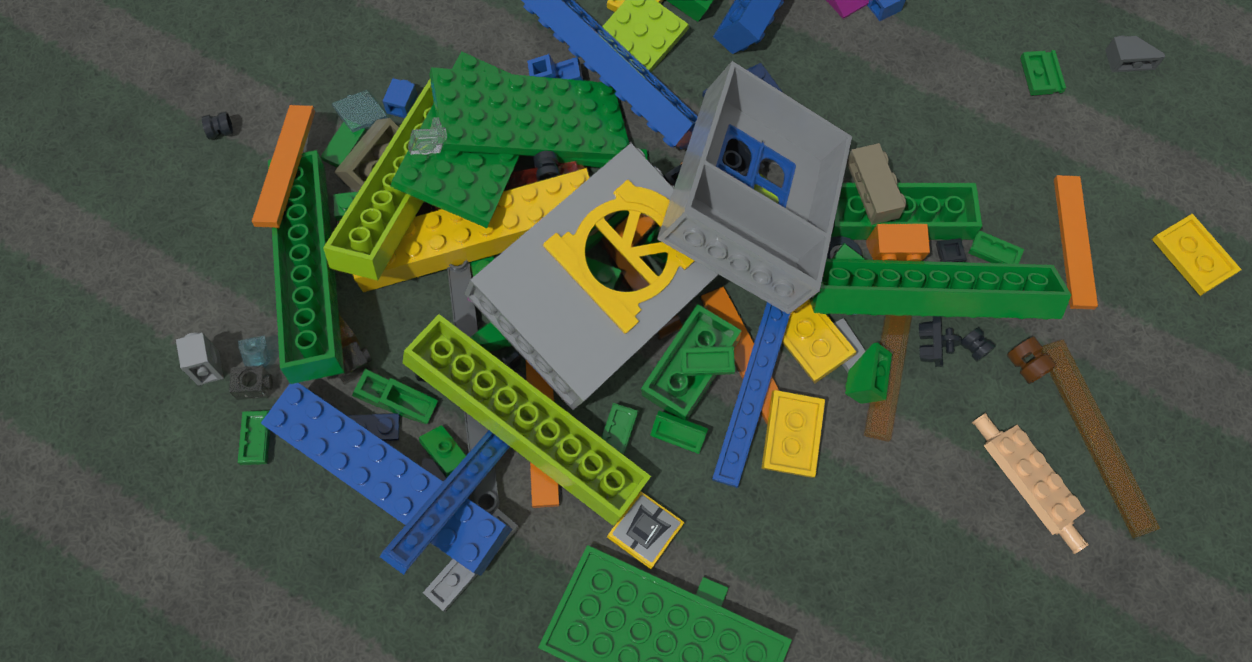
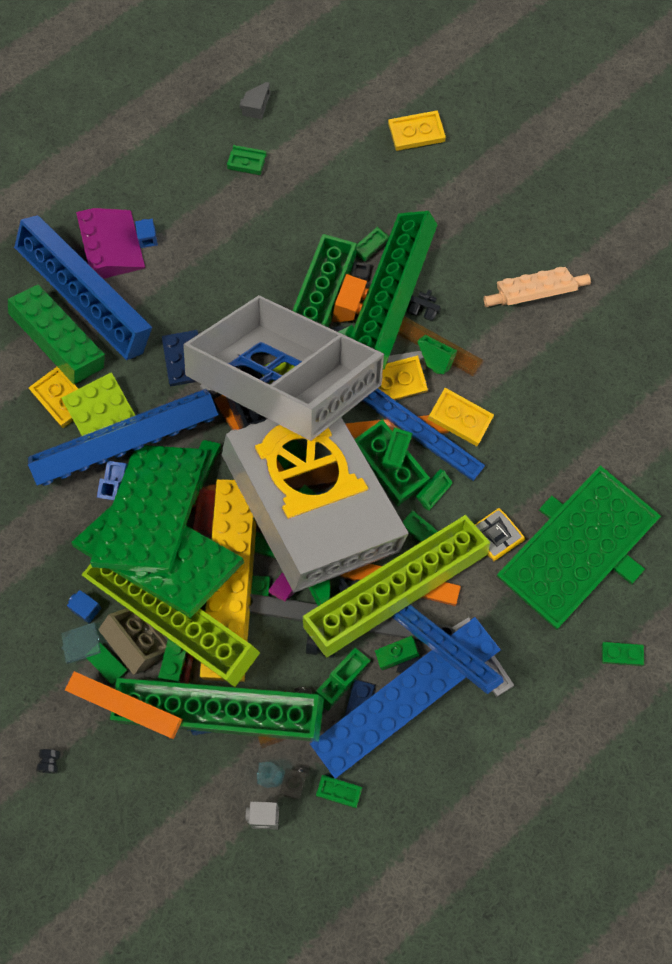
camera: 65 degrees left, 0 degrees up
(428, 140) = (164, 576): clear bracket -> none
(546, 163) = (202, 509): black wheel -> none
(876, 183) = (303, 293): dark tan brick -> none
(977, 344) = (435, 281): black wheel -> none
(1037, 367) = (464, 254): reddish brown wheel -> none
(1075, 242) = (378, 194): orange tile -> none
(1100, 442) = (518, 240): clear orange tile -> none

